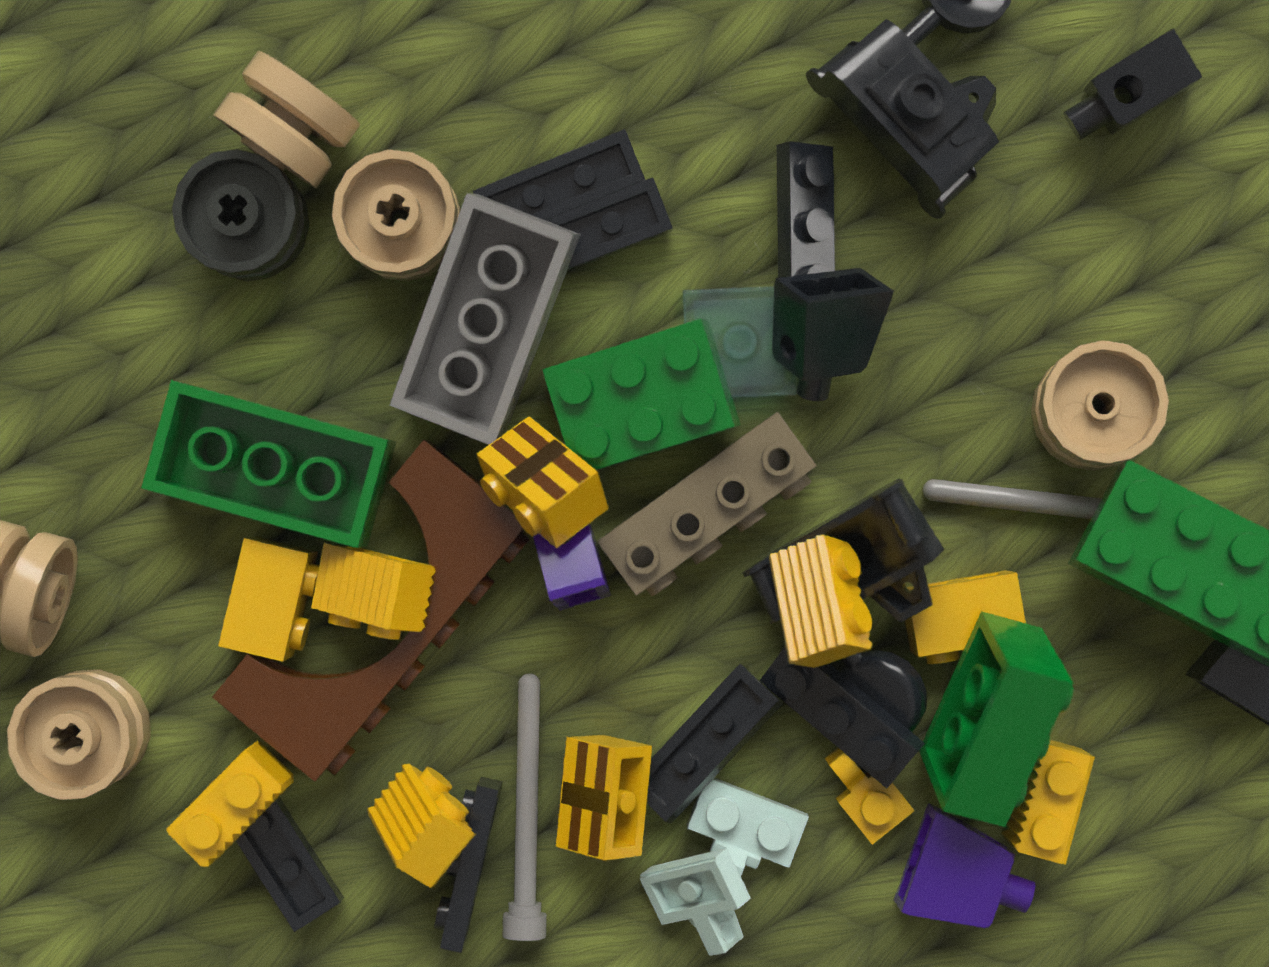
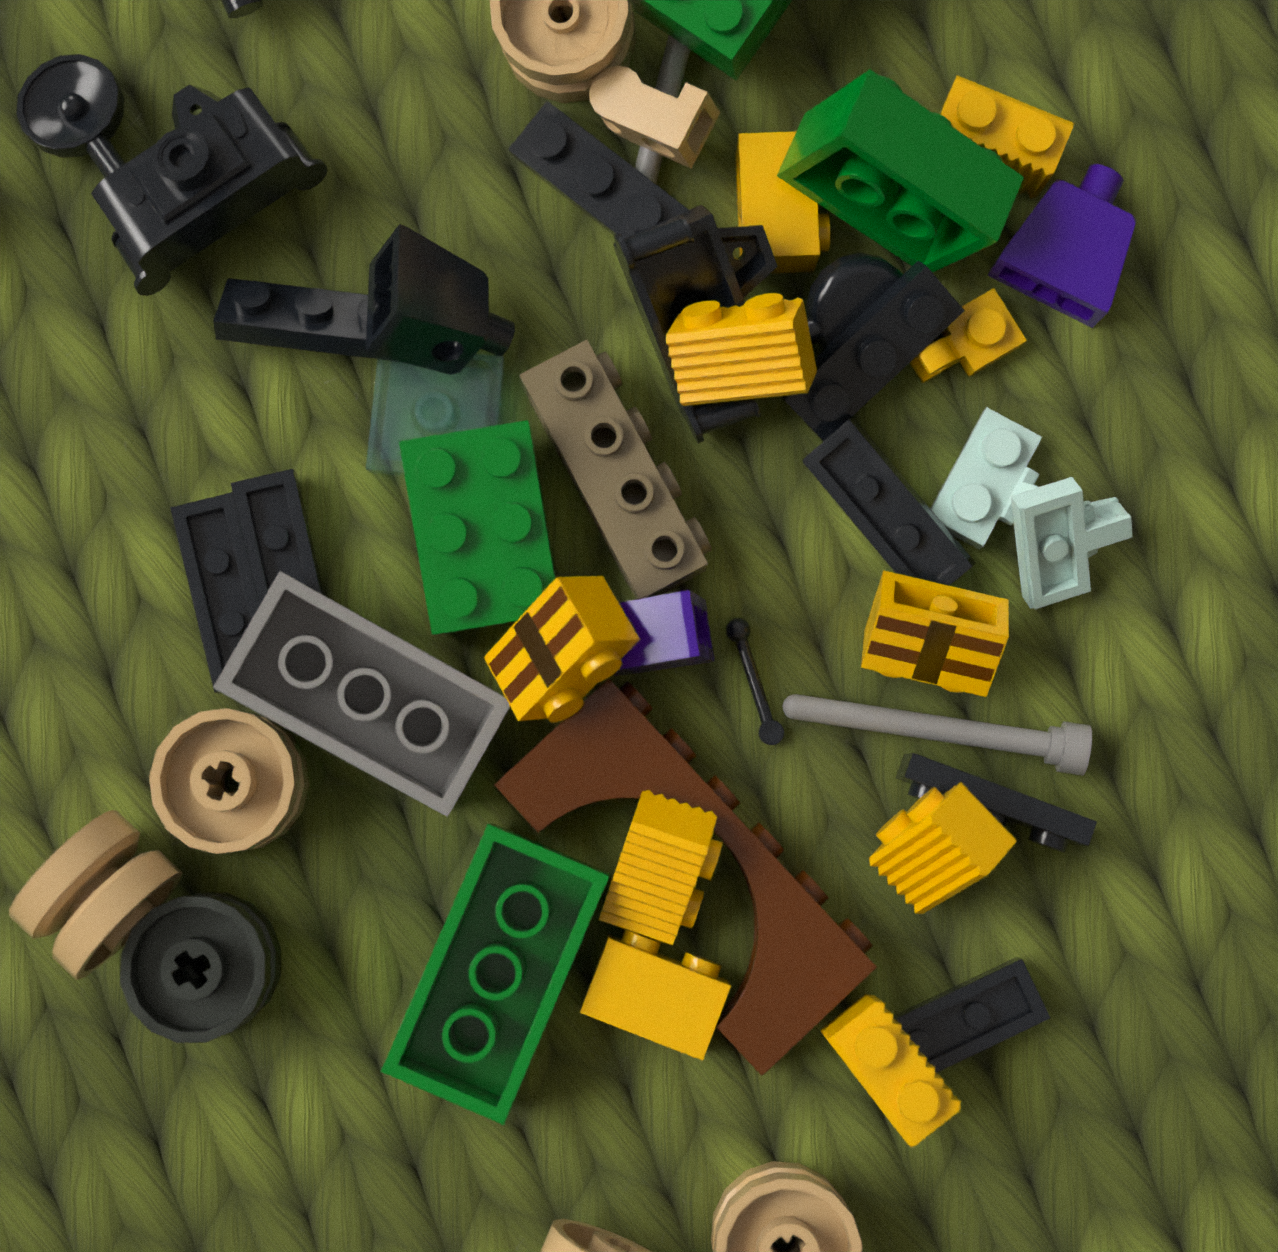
camera: 85 degrees left, 5 degrees down
(506, 665) = (769, 731): none -> black hinge
(964, 452) = (591, 174): none -> black plate
(1021, 493) = (653, 118): none -> tan leg

